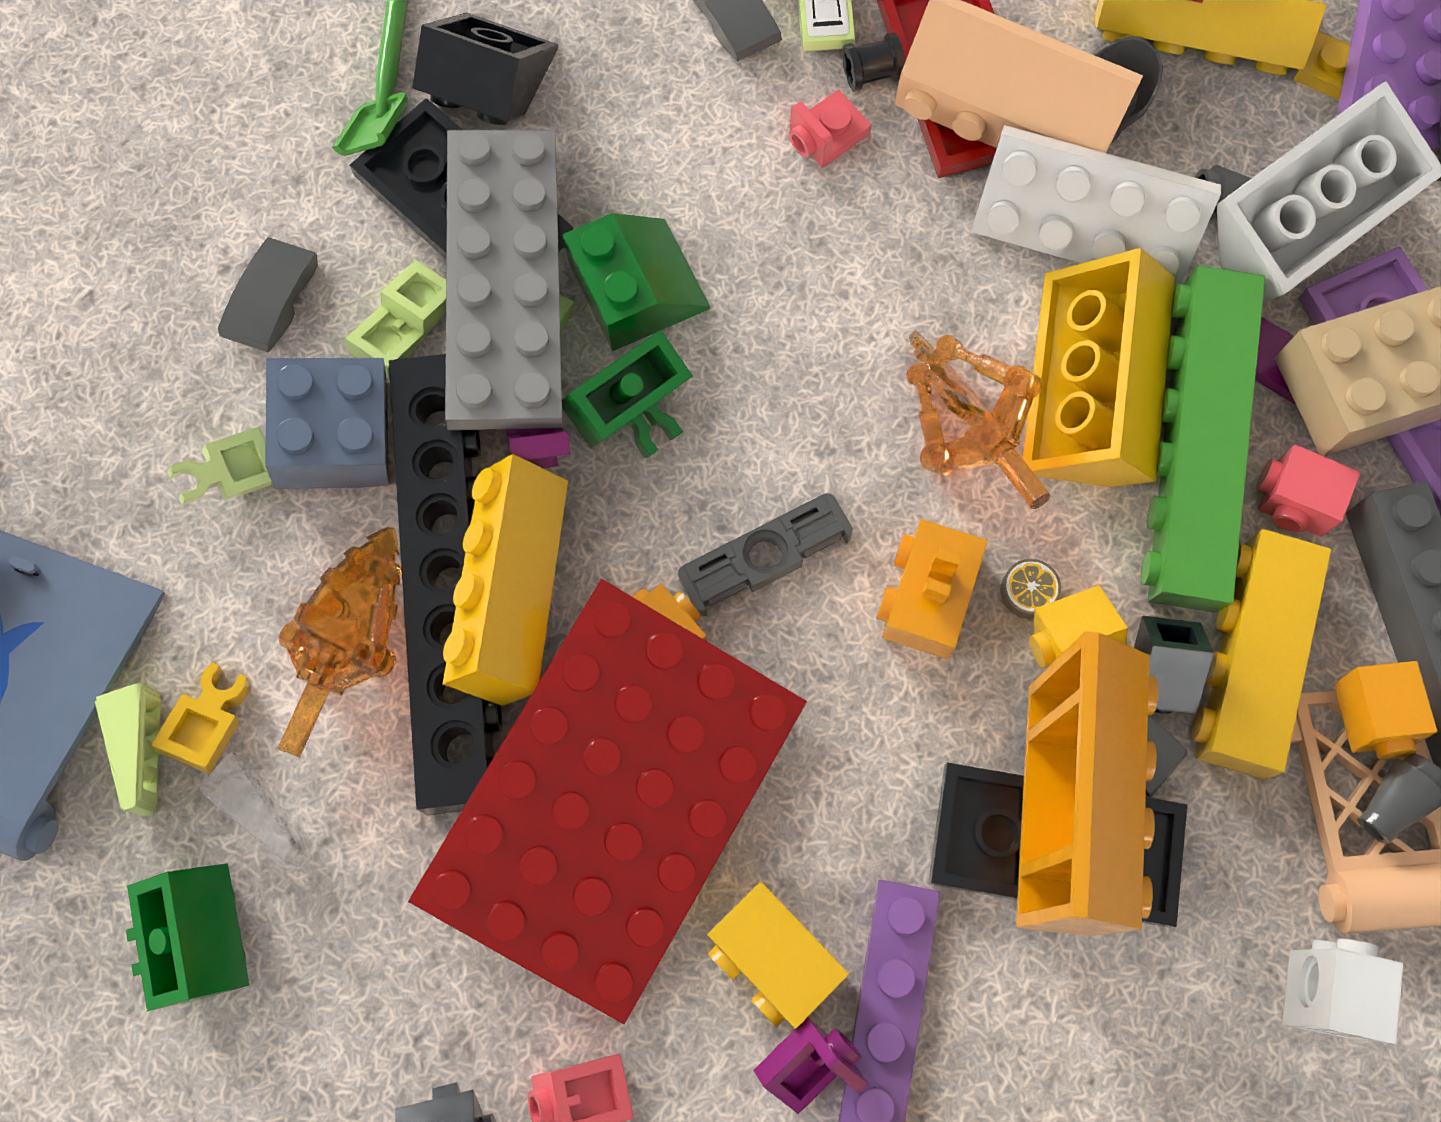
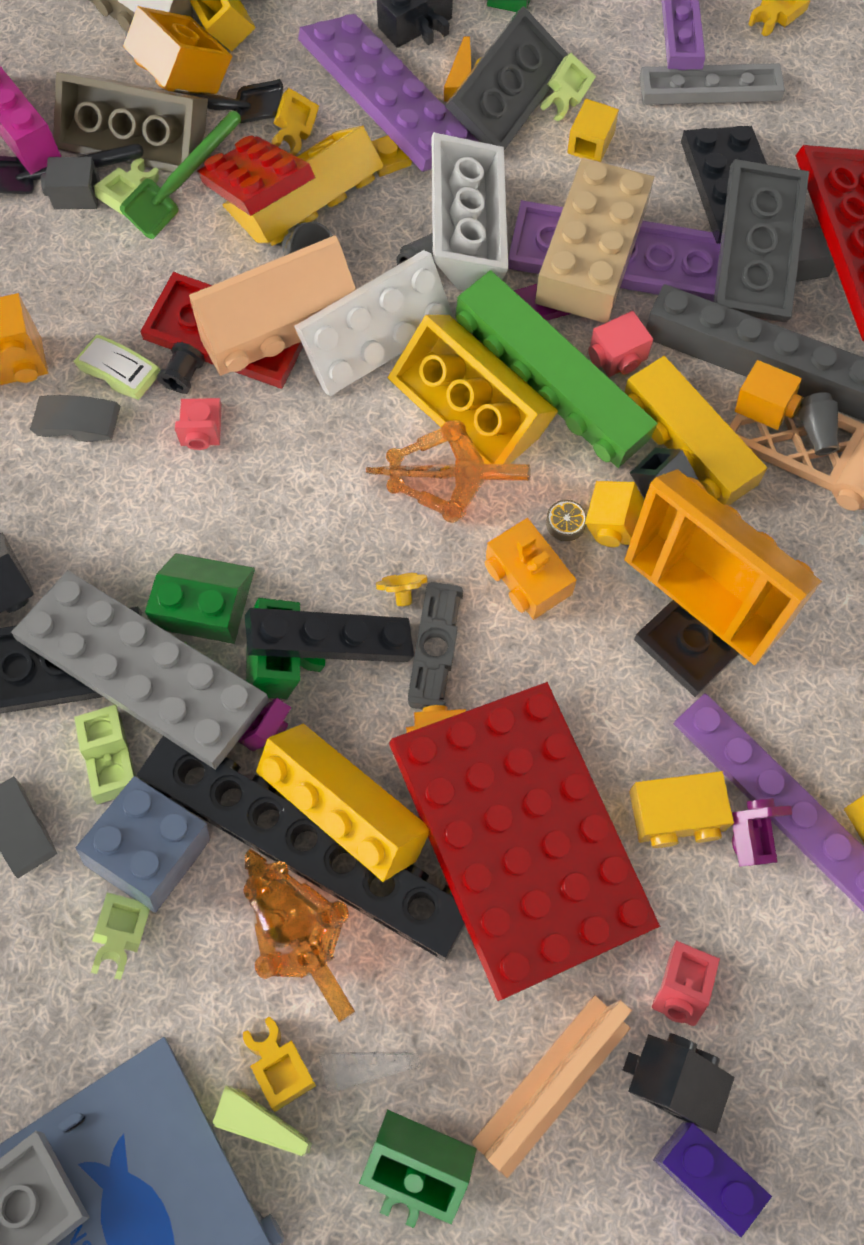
camera: 55 degrees left, 5 degrees down
(363, 1020) = (552, 1084): none -> light nougat fence
(679, 433) = (327, 635): none -> black plate
(805, 468) = (402, 586): none -> yellow plant

